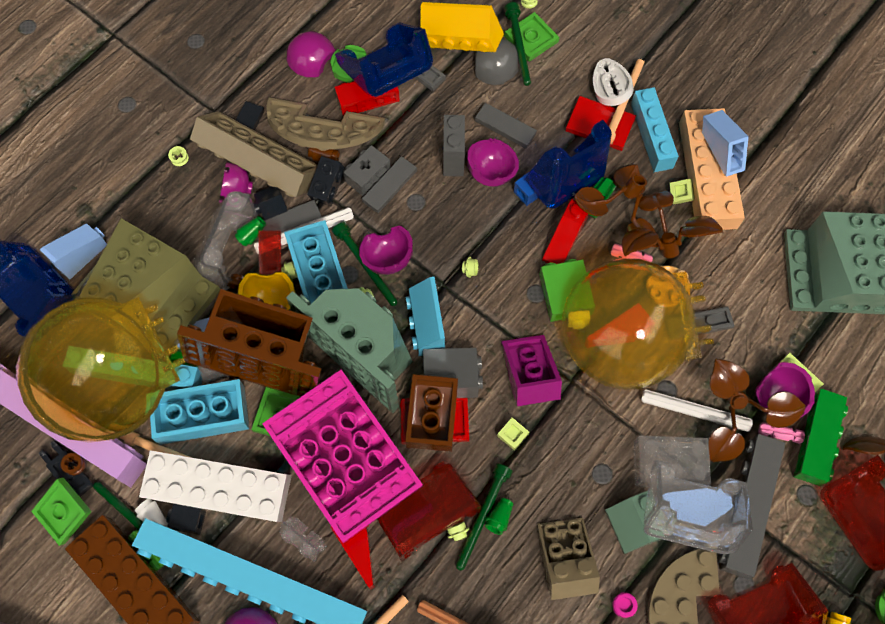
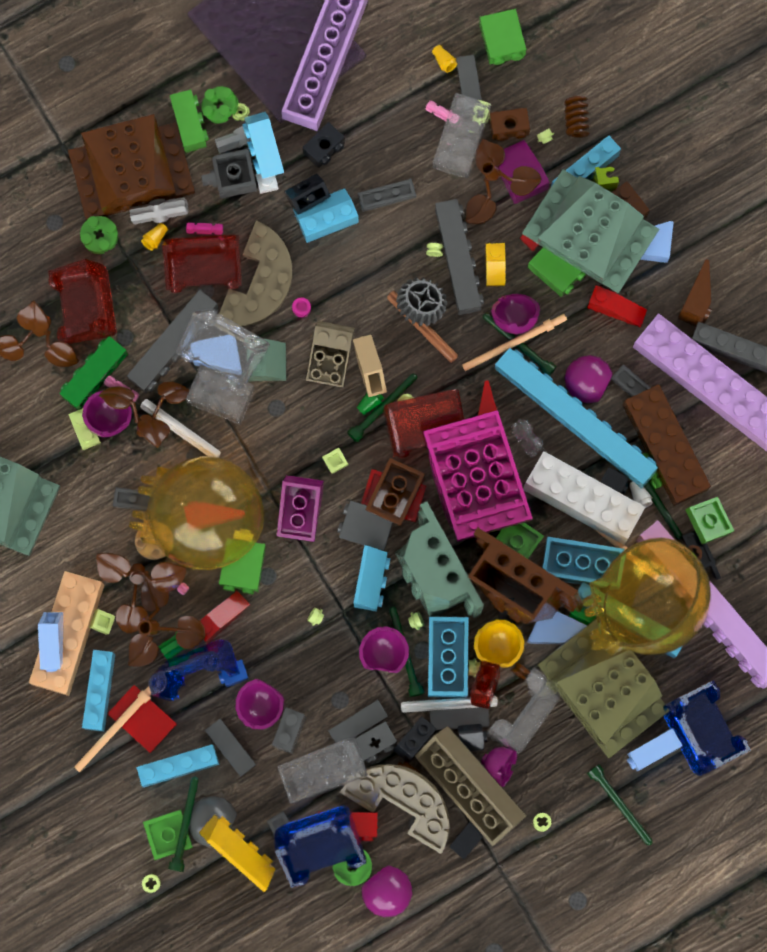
camera: 160 degrees left, 10 degrees up
(132, 213) = (597, 774): none -> dark green piece
(249, 232) = (500, 712): green cone -> none
(405, 121) = (322, 770): none -> clear brick
(516, 551) = (369, 365): none -> tan brick
(548, 91) = (178, 765): none -> medium azure brick
(621, 79) = (105, 750): white piece -> none

